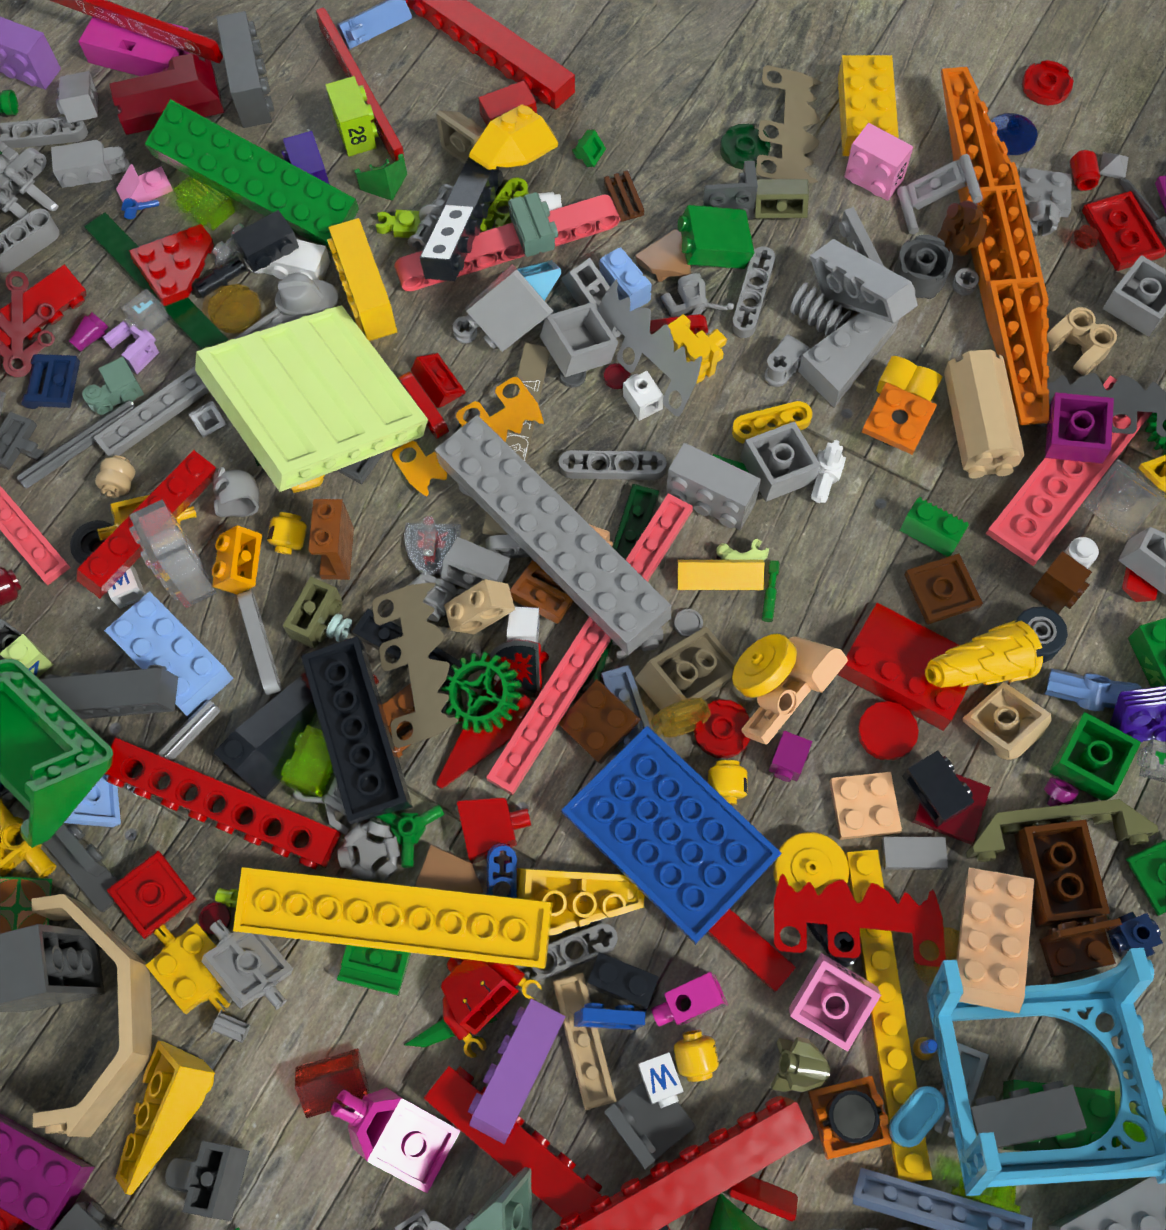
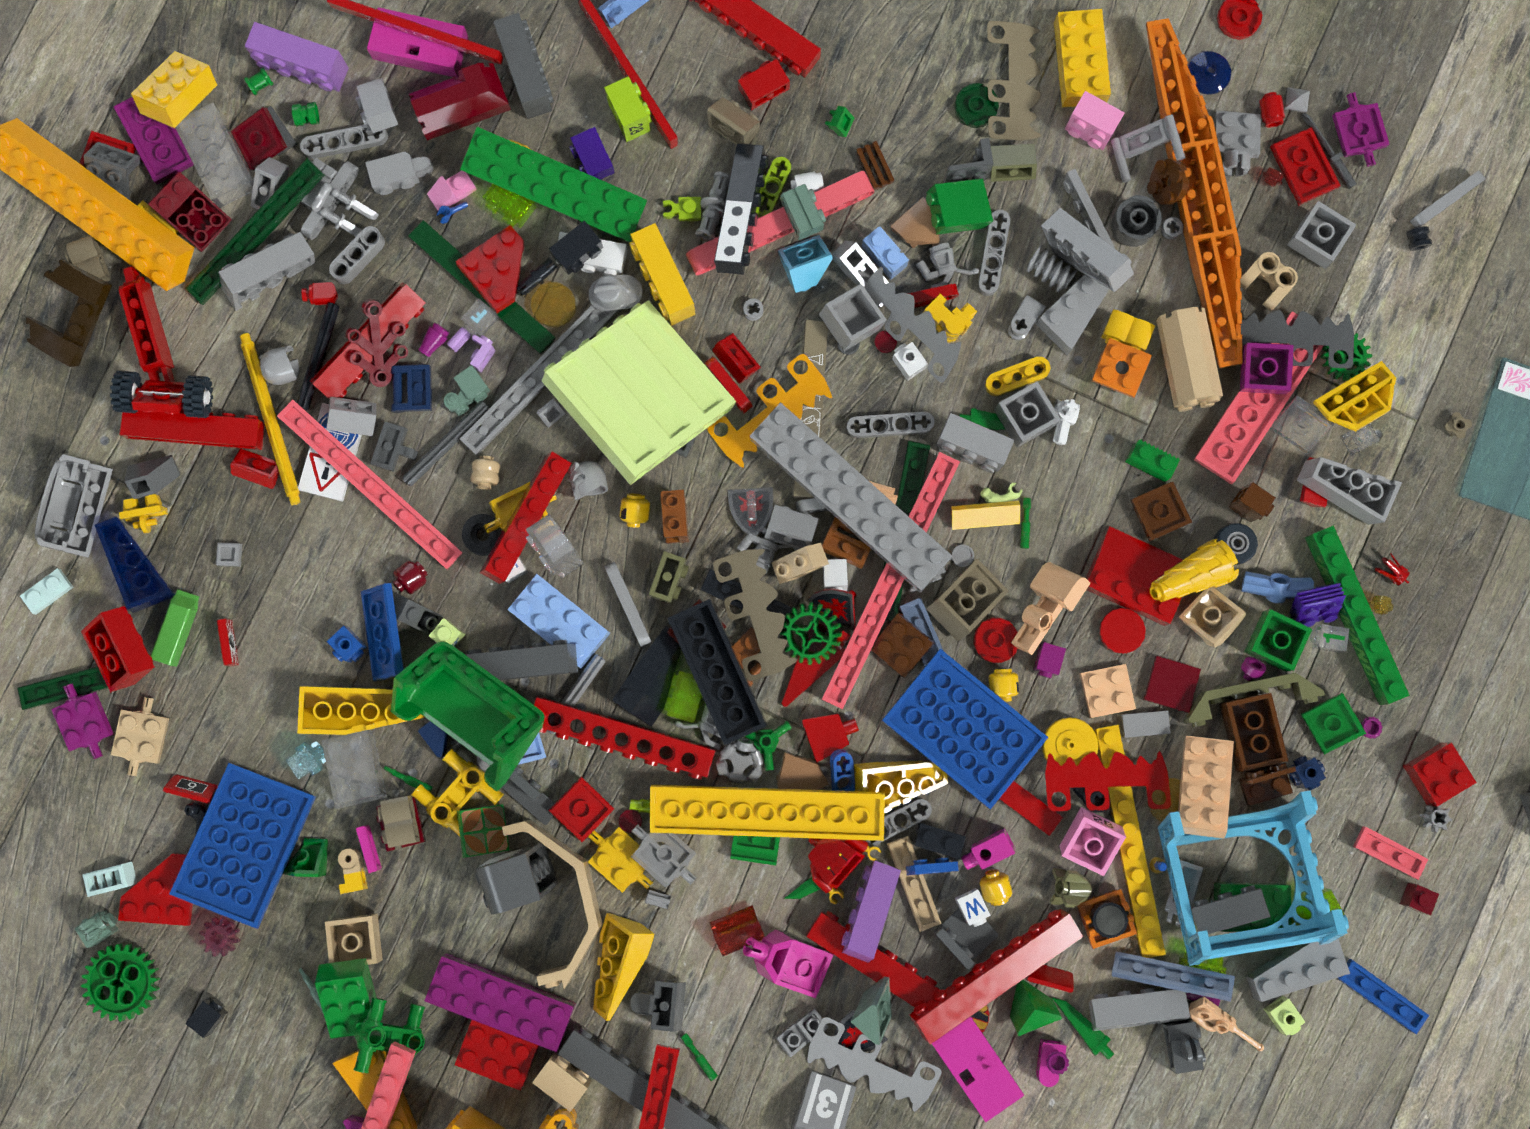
camera: 10 degrees left, 15 degrees up
(227, 251) = (540, 256): clear dish -> none
(236, 560) = (599, 538): light orange brick -> none
(339, 628) = (689, 586): light aqua bush -> none
(383, 180) = (663, 167): green slope -> none
(507, 309) = (792, 296): light grey slope -> none
(514, 140) = (778, 126): yellow wedge -> none
(680, 717) = (965, 640): clear yellow tile -> none
(764, 665) = (1026, 592): yellow wheel -> none
(917, 1116) = (1154, 914): medium azure tile -> none
(938, 788) = (1162, 676): black brick -> none
(1083, 551) = (1267, 475): white brick -> none

